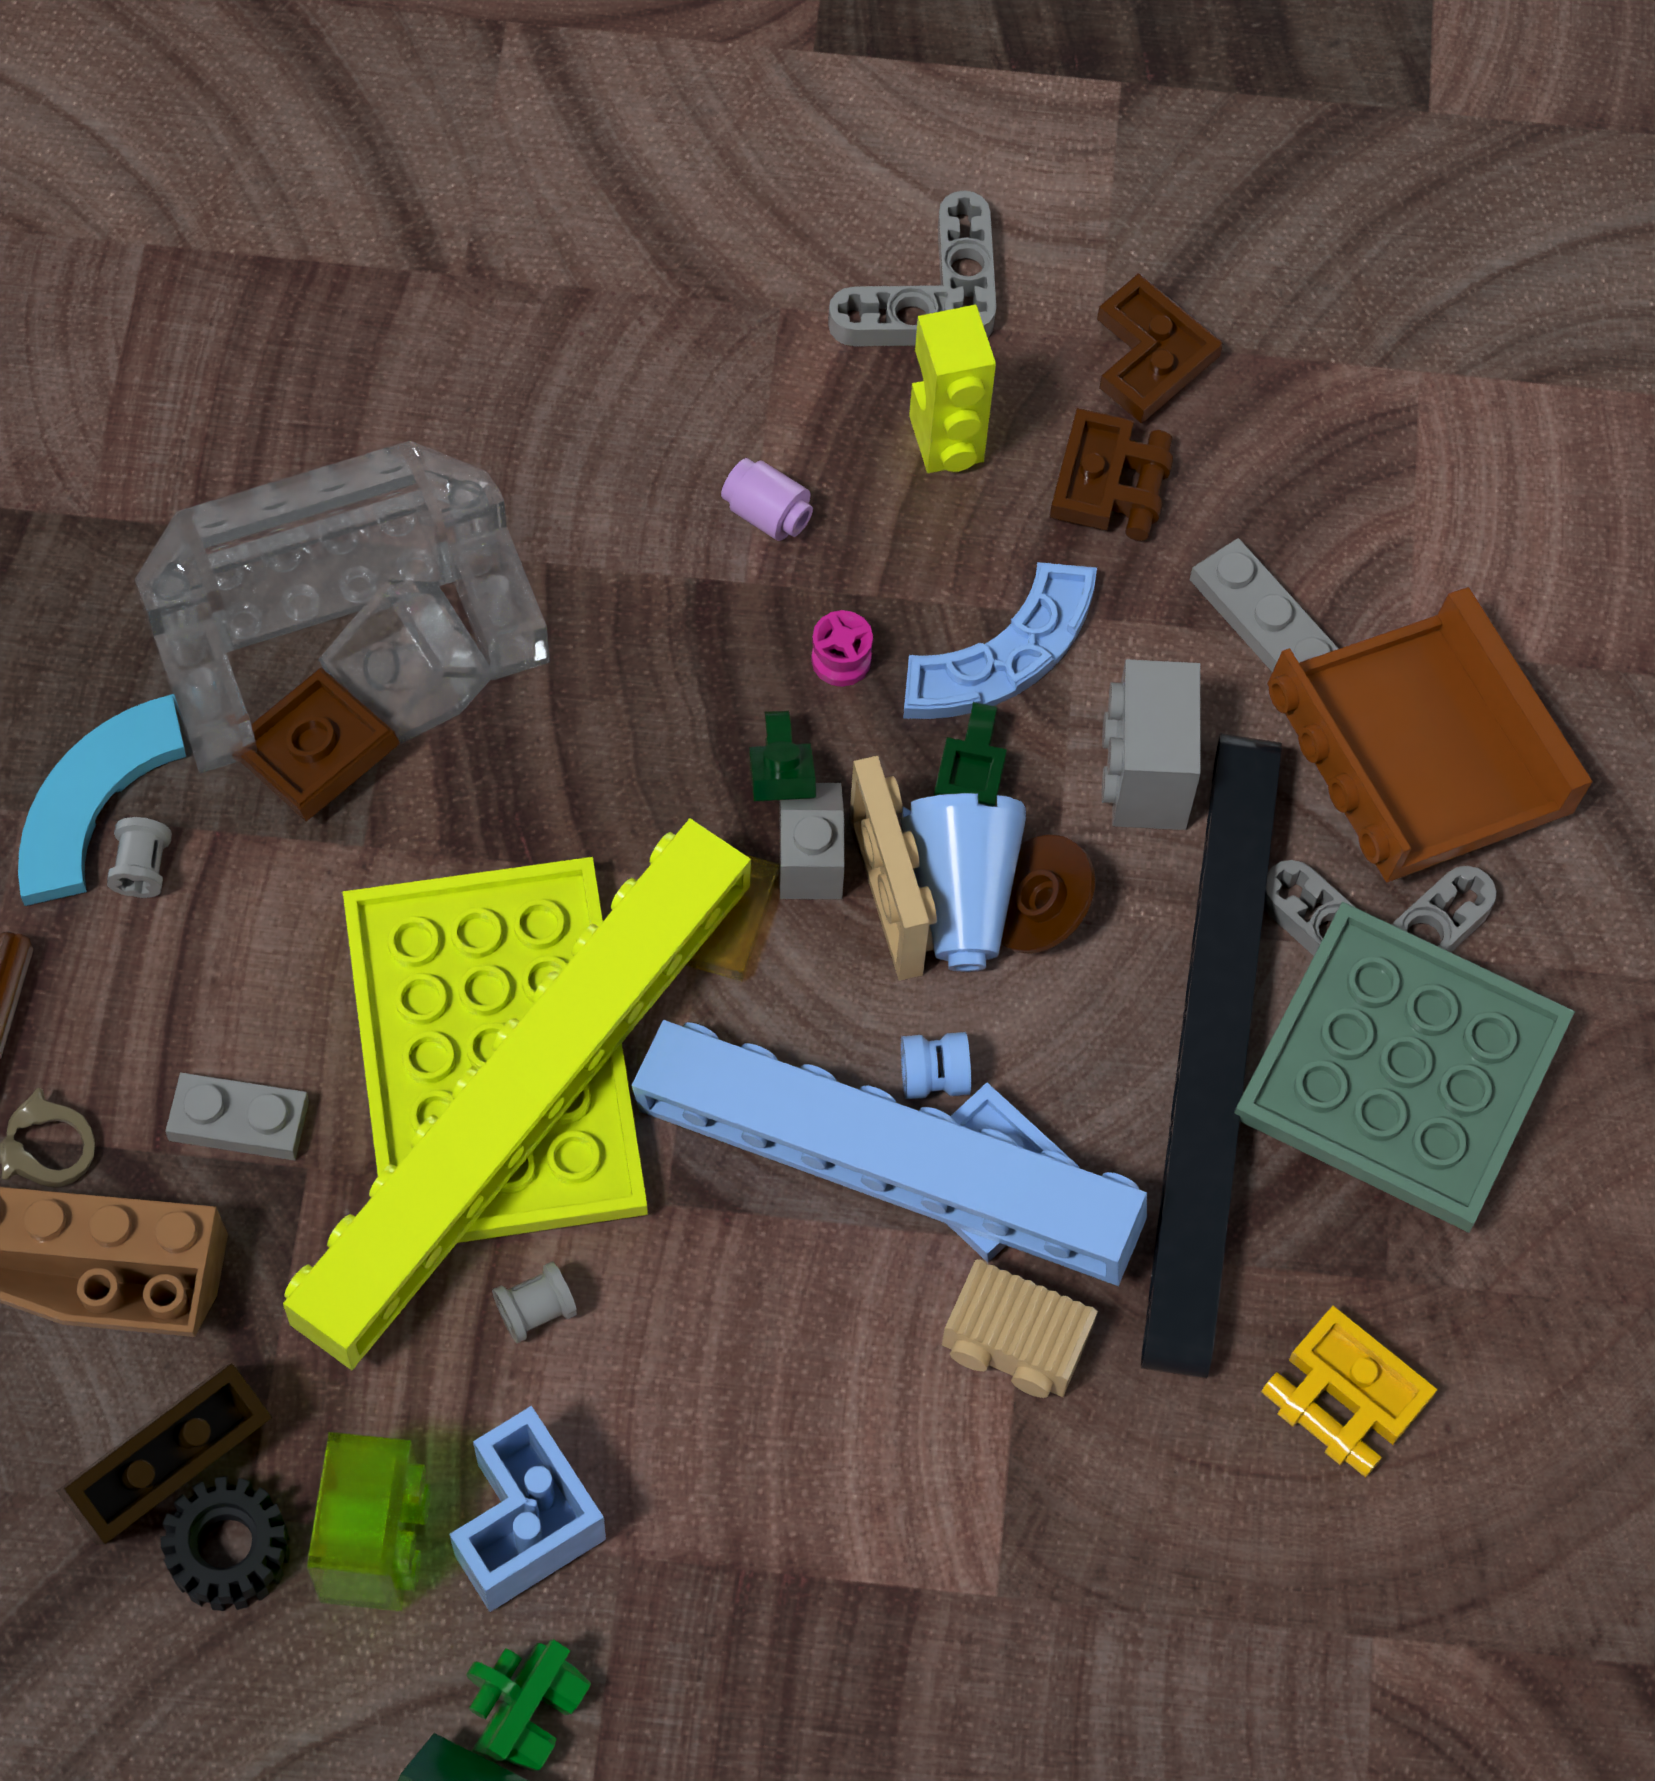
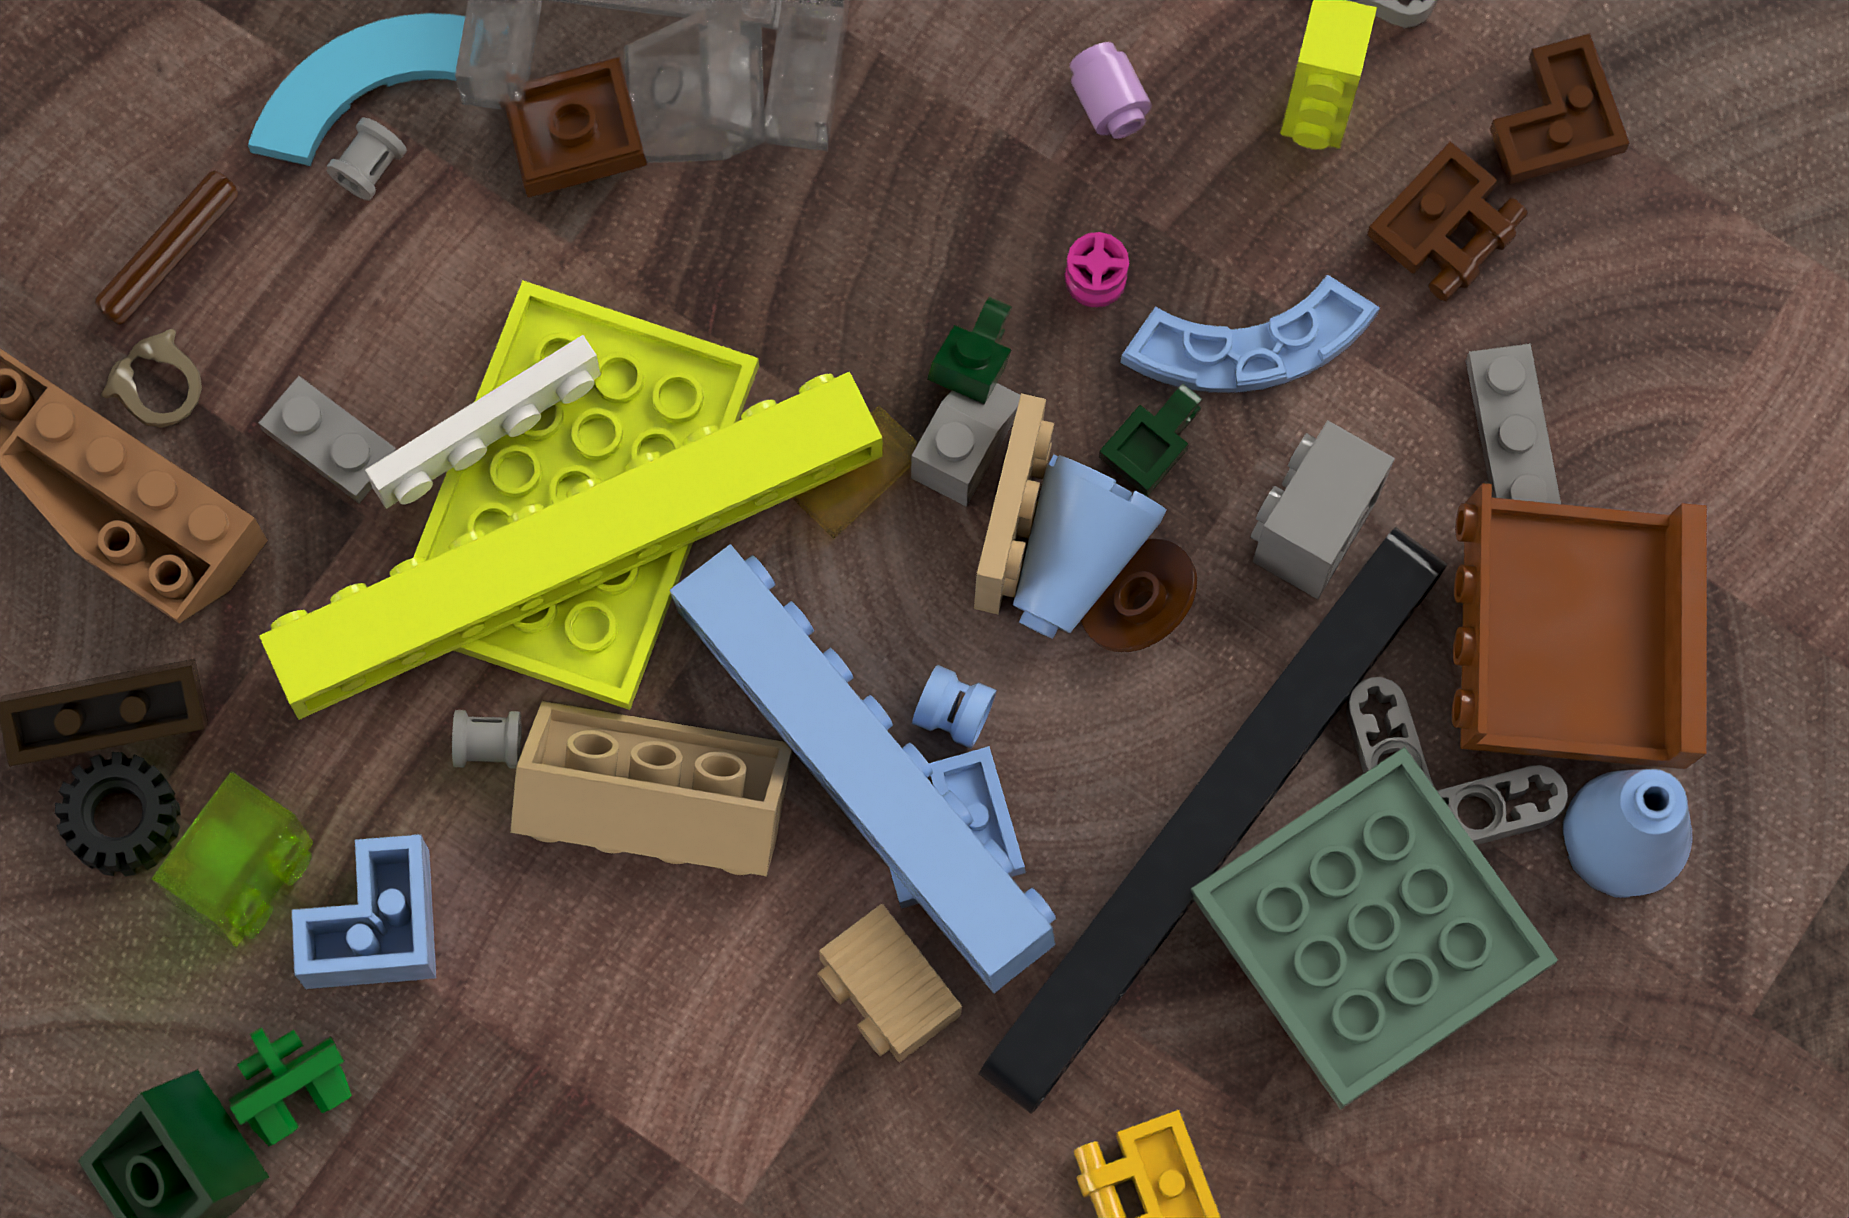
camera: 30 degrees right, 10 degrees up
(371, 1042) = (465, 435): none -> white plate
(711, 1270) = (651, 788): none -> tan slope
(1562, 878) = (1629, 832): none -> light blue cone

